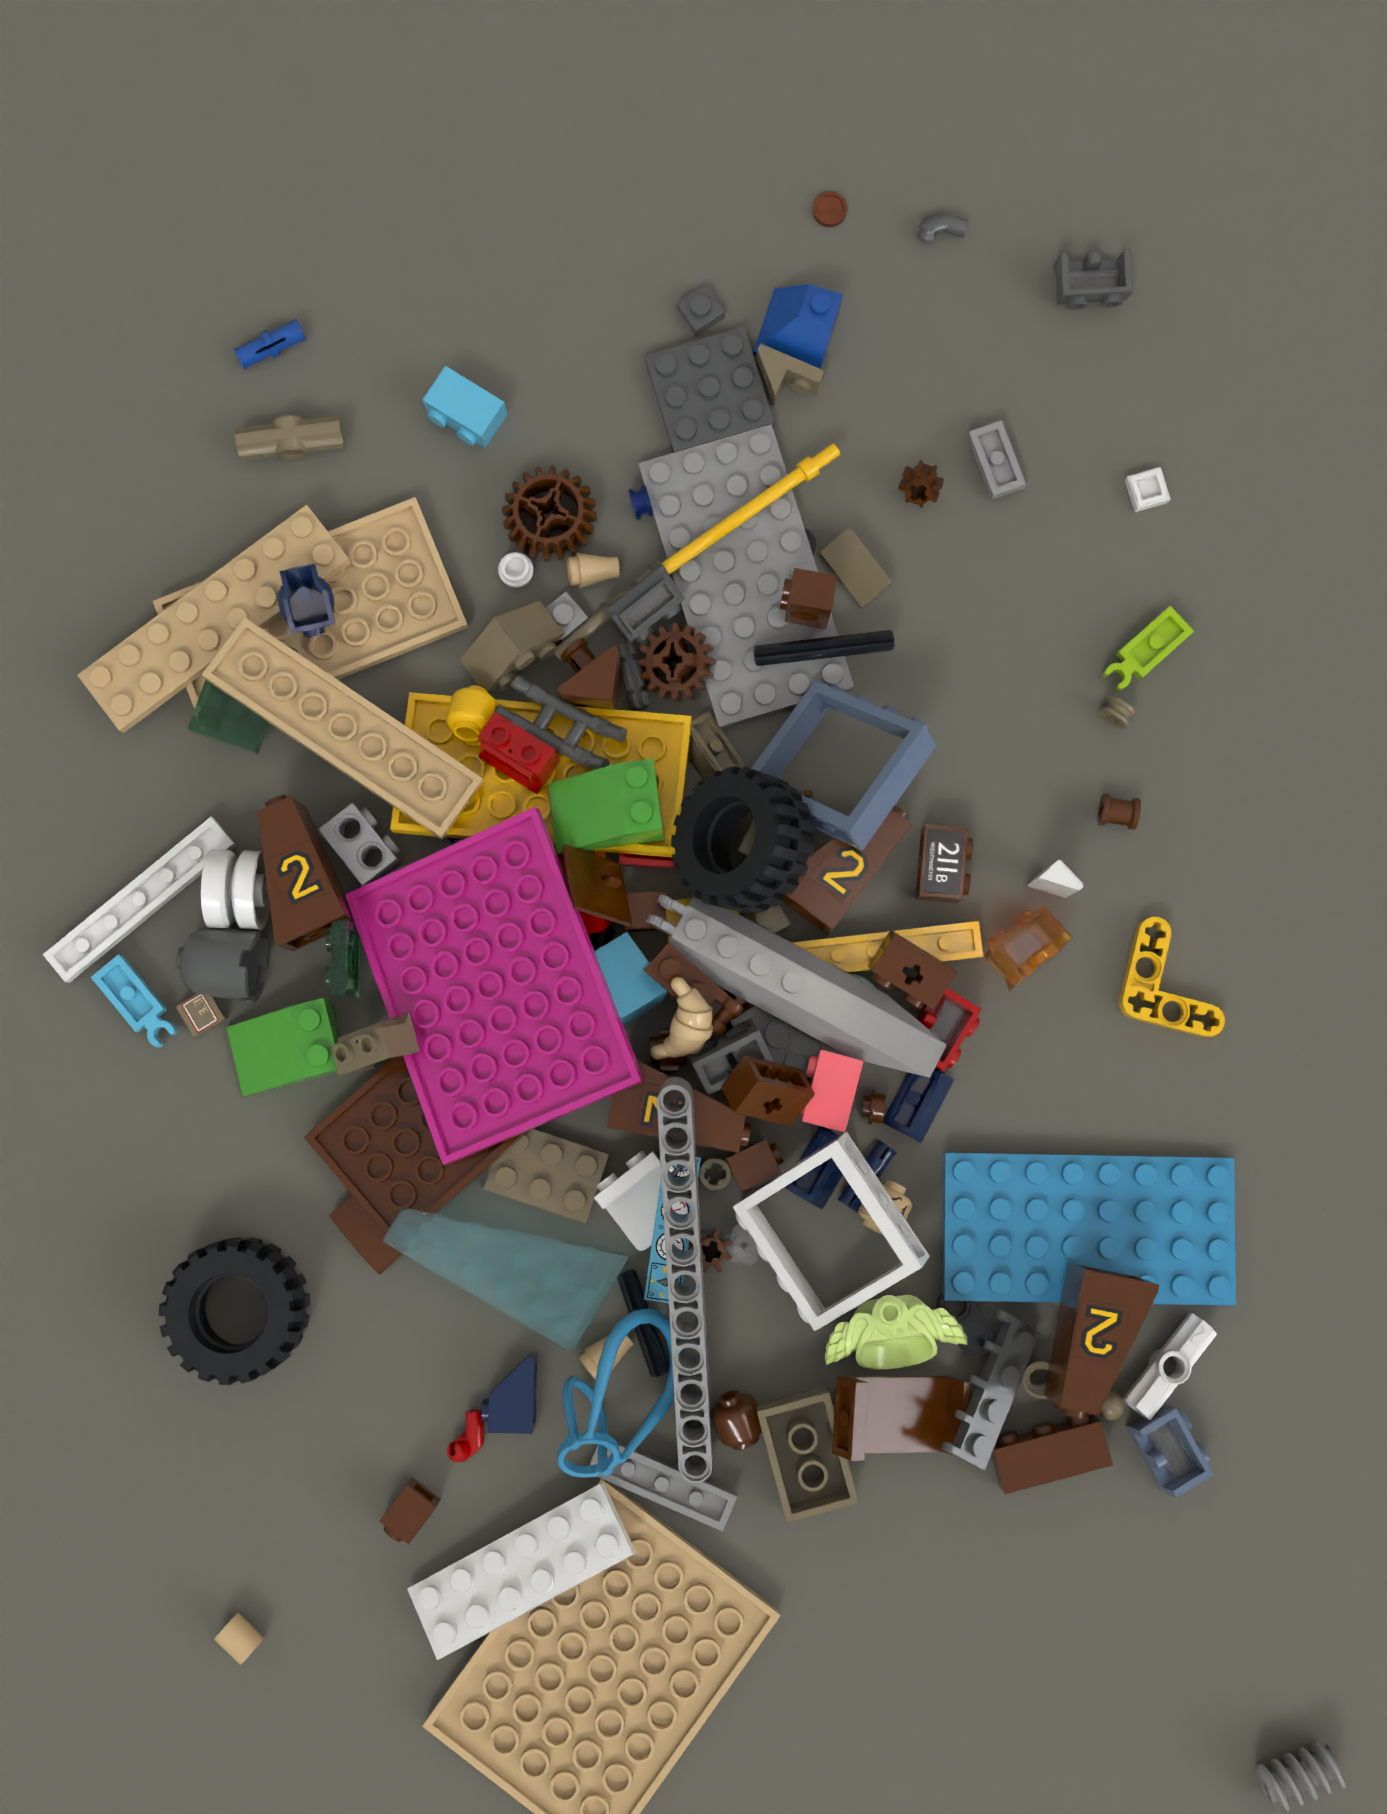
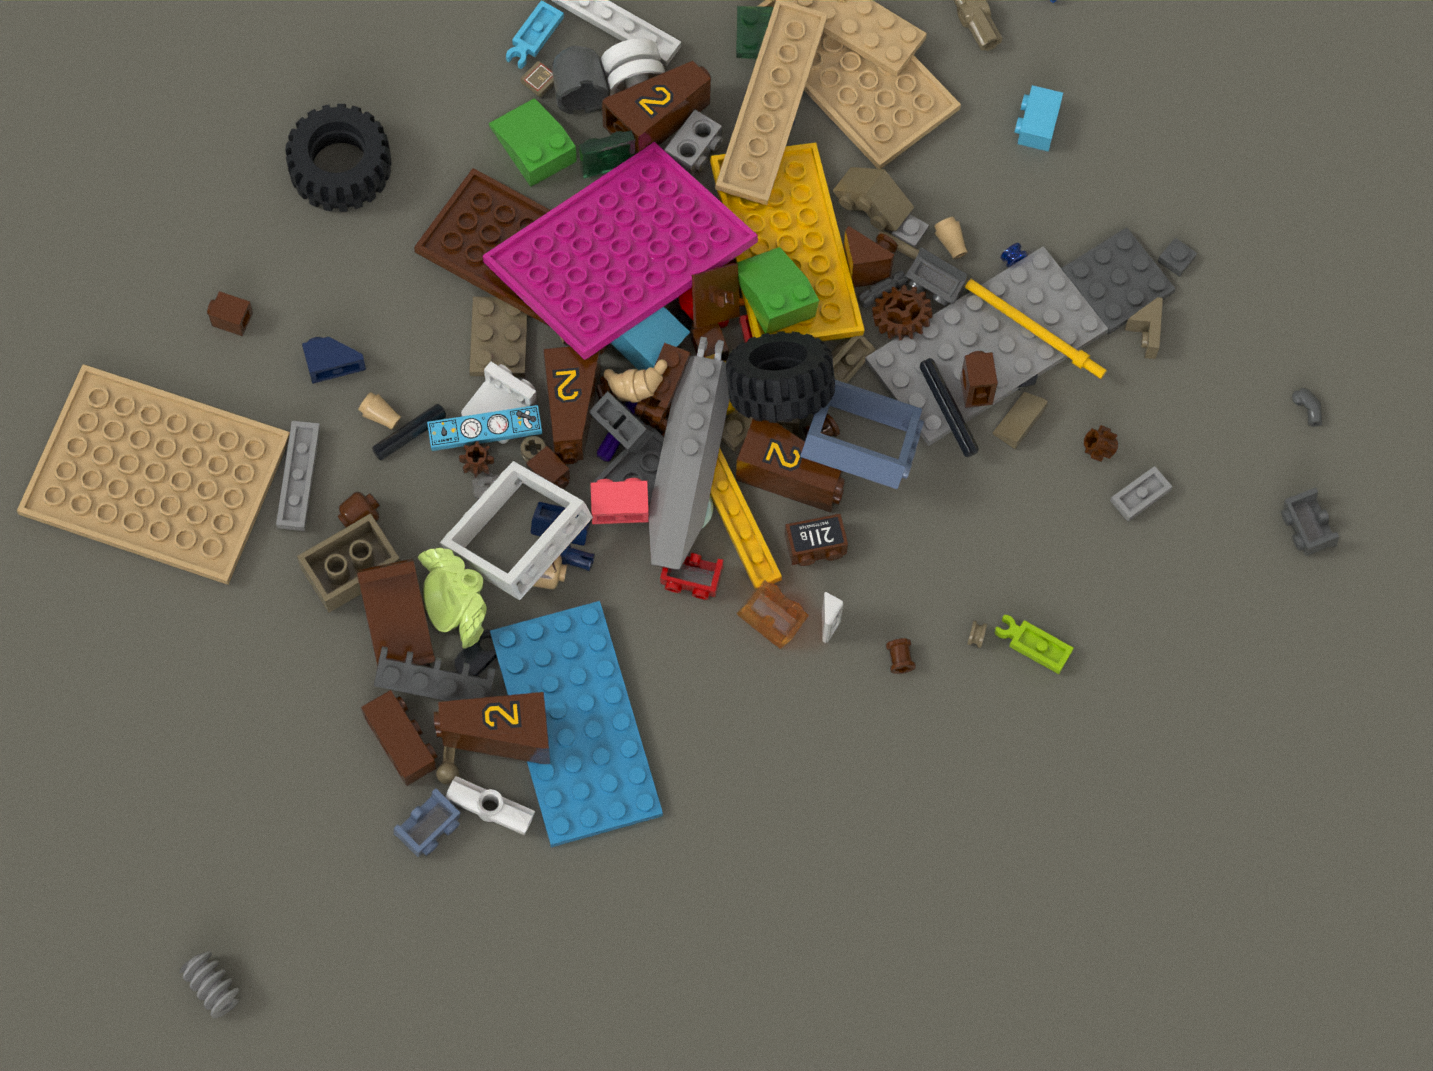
camera: 70 degrees right, 15 degrees down
(239, 1638) = (110, 230): tan beam -> none
(305, 600) = (854, 50): dark blue hand -> none
(364, 1234) = (414, 229): reddish brown slope -> none
(374, 1044) = (549, 180): dark tan window -> none
(470, 712) = (813, 182): yellow head -> none
(470, 1440) = (289, 340): red arm -> none
(515, 570) = (933, 188): white plate -> none
(517, 753) = (793, 218): red window -> none
(521, 1571) = (210, 396): white plate -> none
(524, 1275) = (419, 339): clear light blue wing -> none
(557, 487) = (961, 198): reddish brown gear -> none
(581, 718) = (837, 234): dark grey piece -> none
(596, 1396) = (353, 394): dark azure animal -> none
(683, 1298) = (464, 435): light grey beam -> none
(767, 1090) = (604, 450): reddish brown brick -> none
(800, 322) = (1190, 329): blue slope -> none
(829, 209) = (1292, 325): copper piece -> none
(874, 1107) = (617, 545): reddish brown plate -> none
(918, 1103) = (632, 578): dark blue slope -> none
(932, 974) = (731, 546): reddish brown brick -> none
(1147, 489) = (1161, 612): white tile -> none
(1149, 987) = (774, 717): yellow beam -> none

